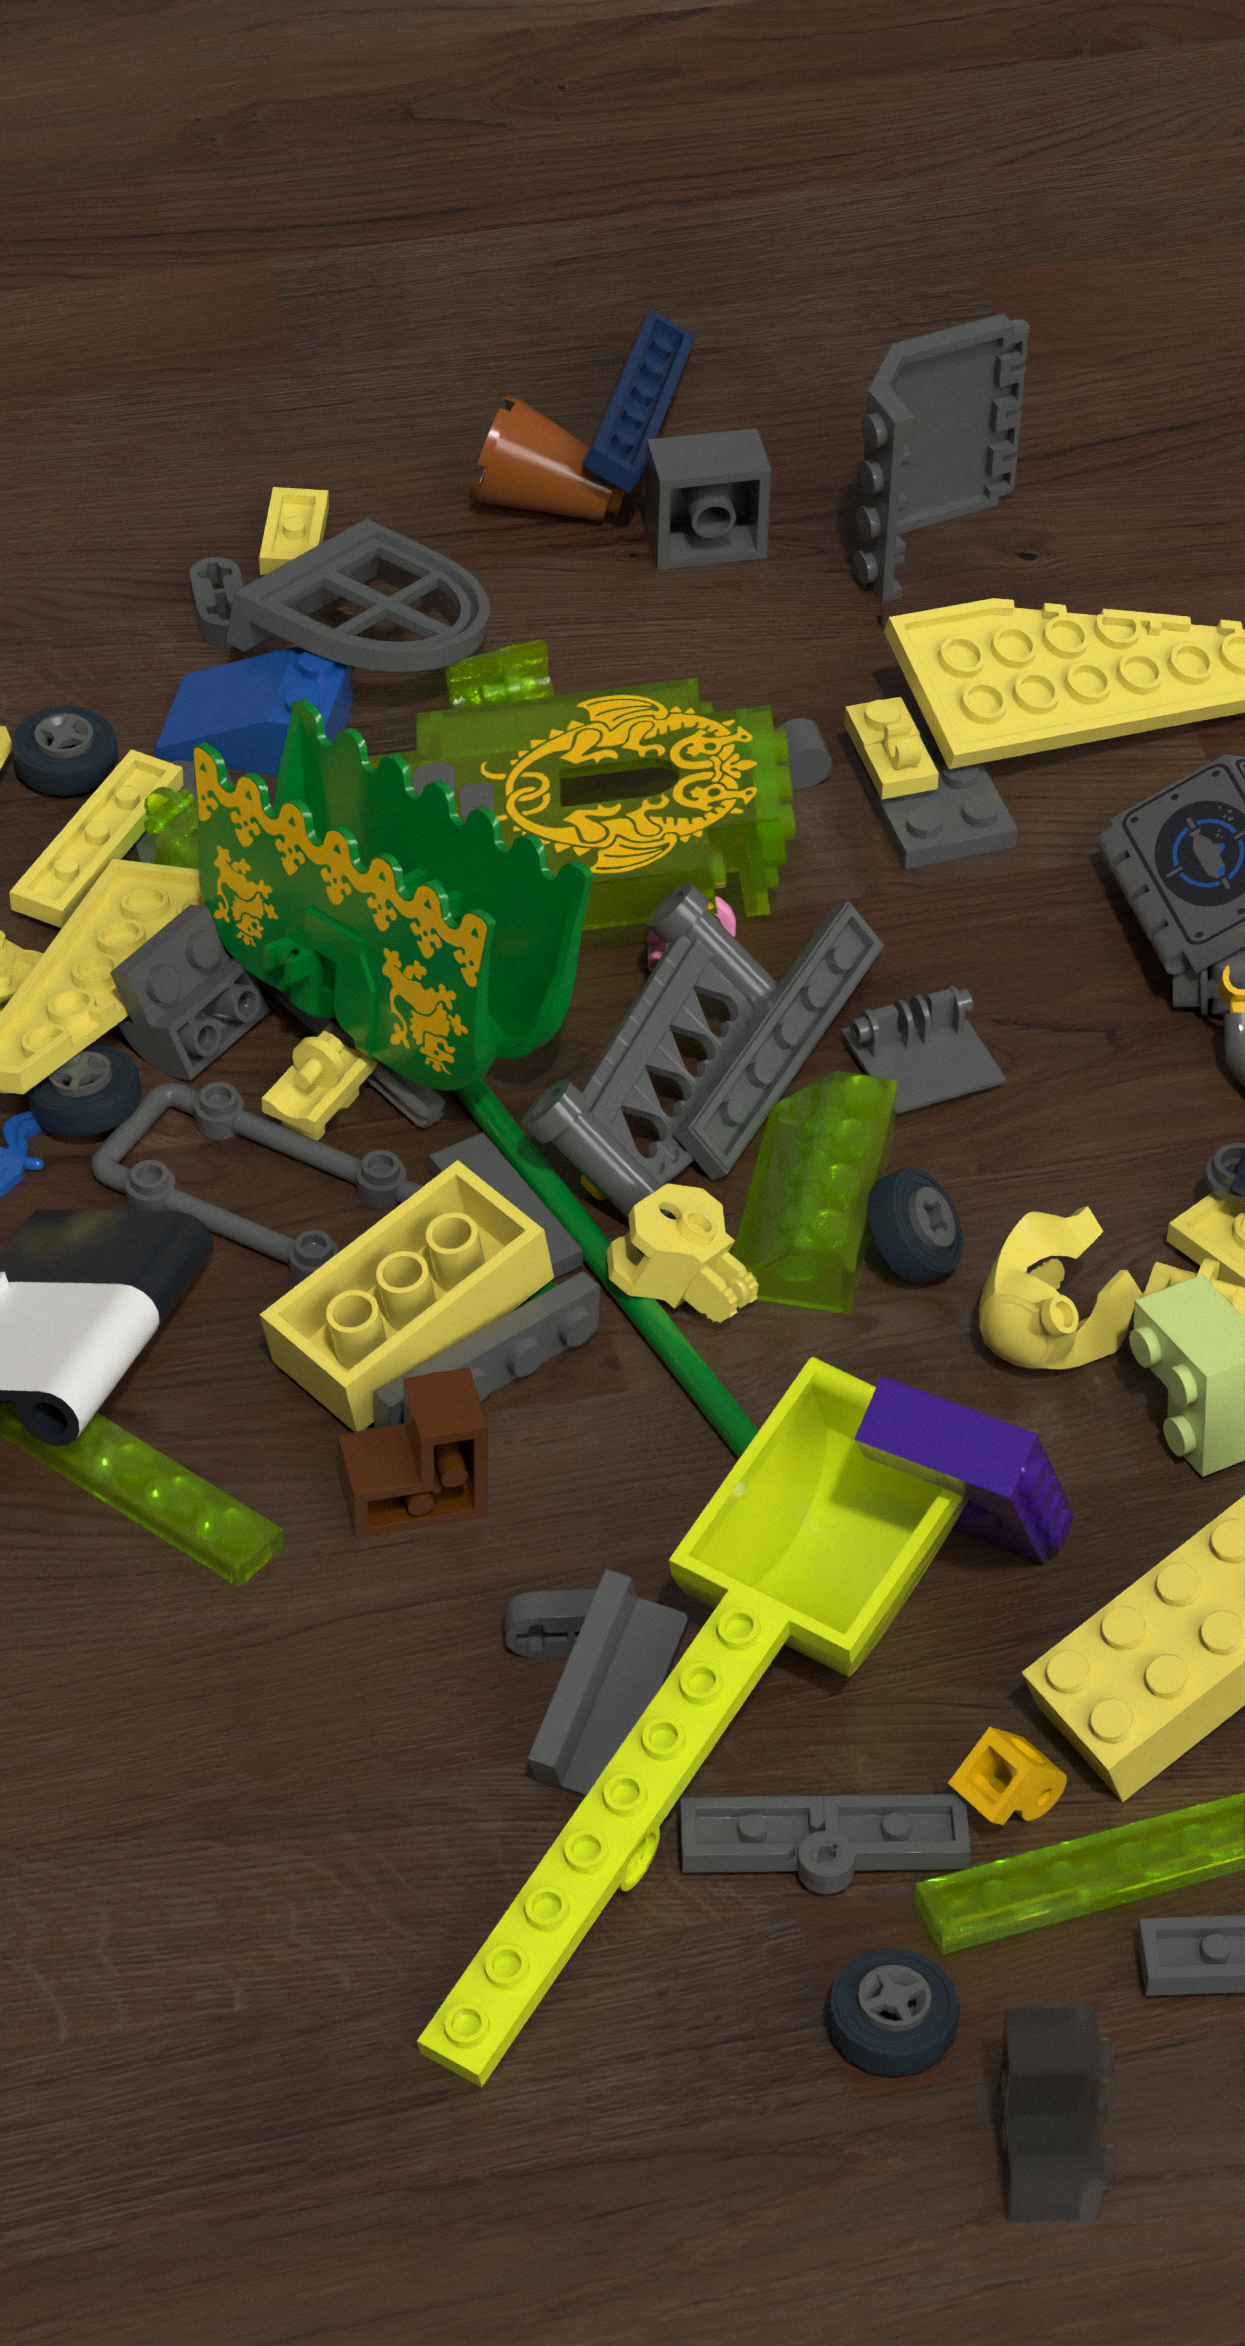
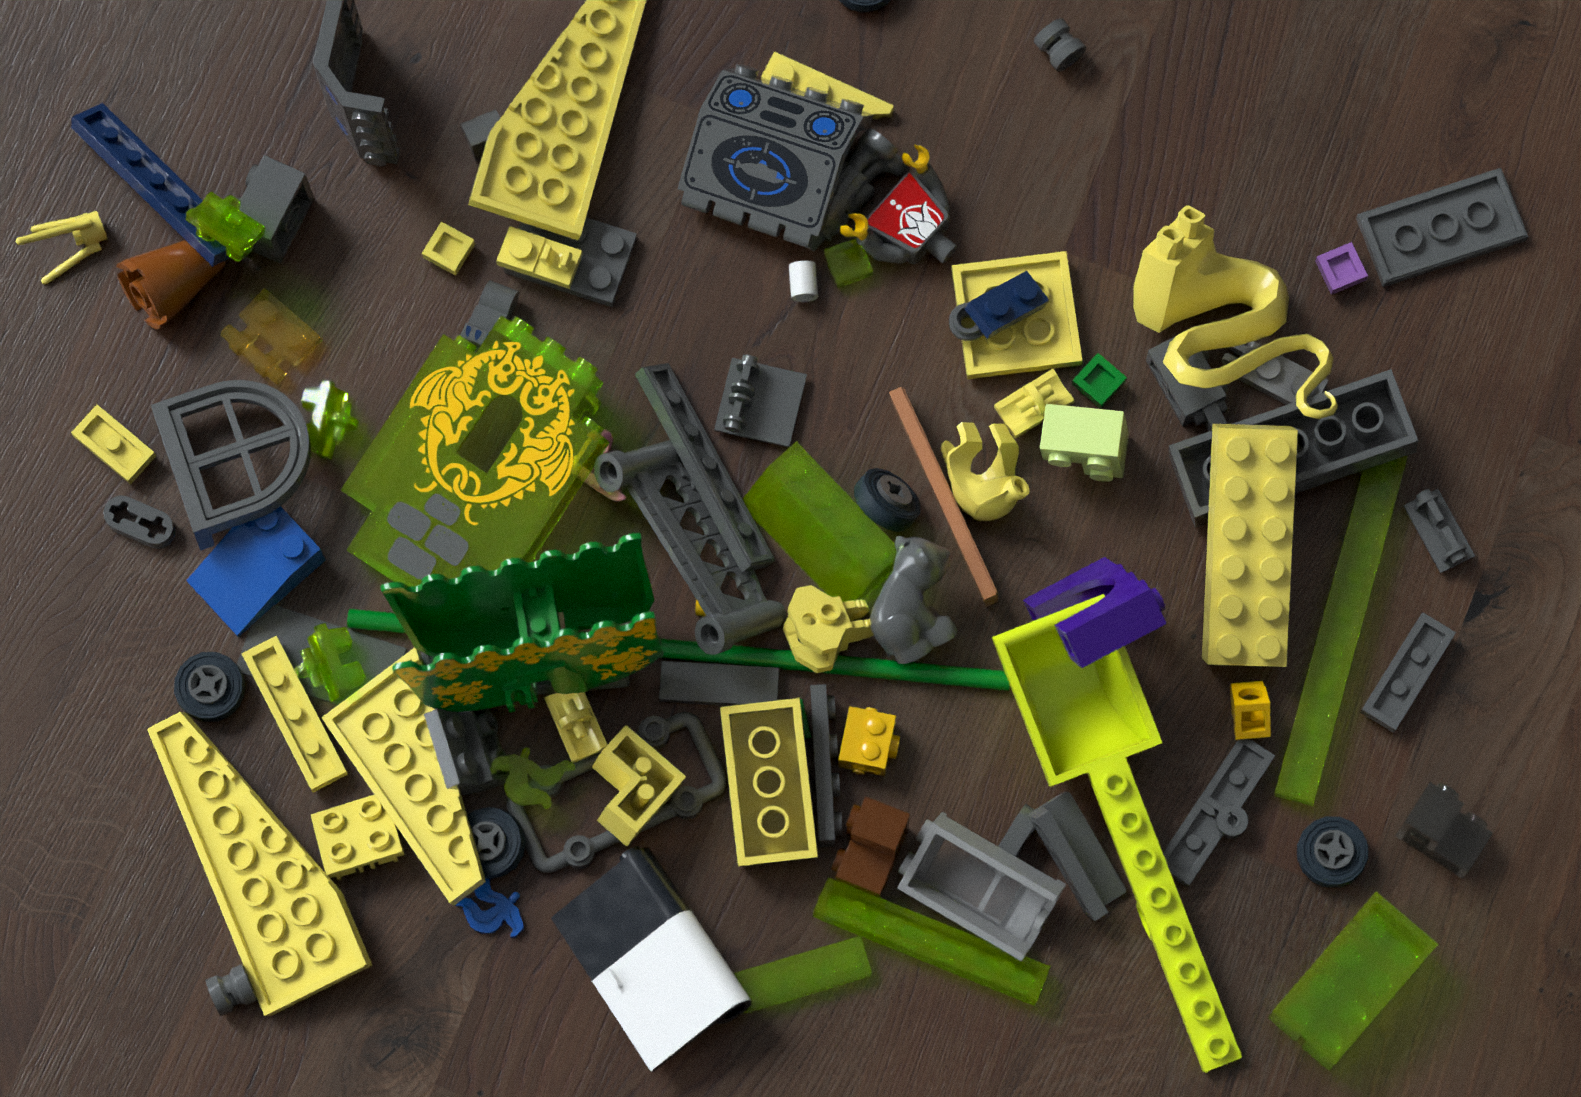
camera: 50 degrees left, 30 degrees up
(204, 1047) = (517, 782): none -> clear neon green piece
(282, 1175) = (643, 781): none -> light yellow brick
(341, 1613) = (930, 941): none -> clear neon green plate
(463, 1604) = (979, 885): none -> door
(526, 383) = (85, 229): none -> light yellow plant
(565, 1388) = (868, 741): none -> yellow head
(574, 593) = (276, 326): none -> clear yellow plate
(637, 428) = (224, 222): none -> clear neon green hips
(708, 2133) = (1353, 980): none -> clear neon green piece
(766, 1294) = (900, 615): none -> dark grey animal
(821, 681) = (448, 248): none -> light yellow plate
(955, 1318) = (944, 496): none -> nougat tile
(1123, 1011) = (803, 281): none -> white hinge
(1192, 1044) = (848, 263): none -> clear neon green tile

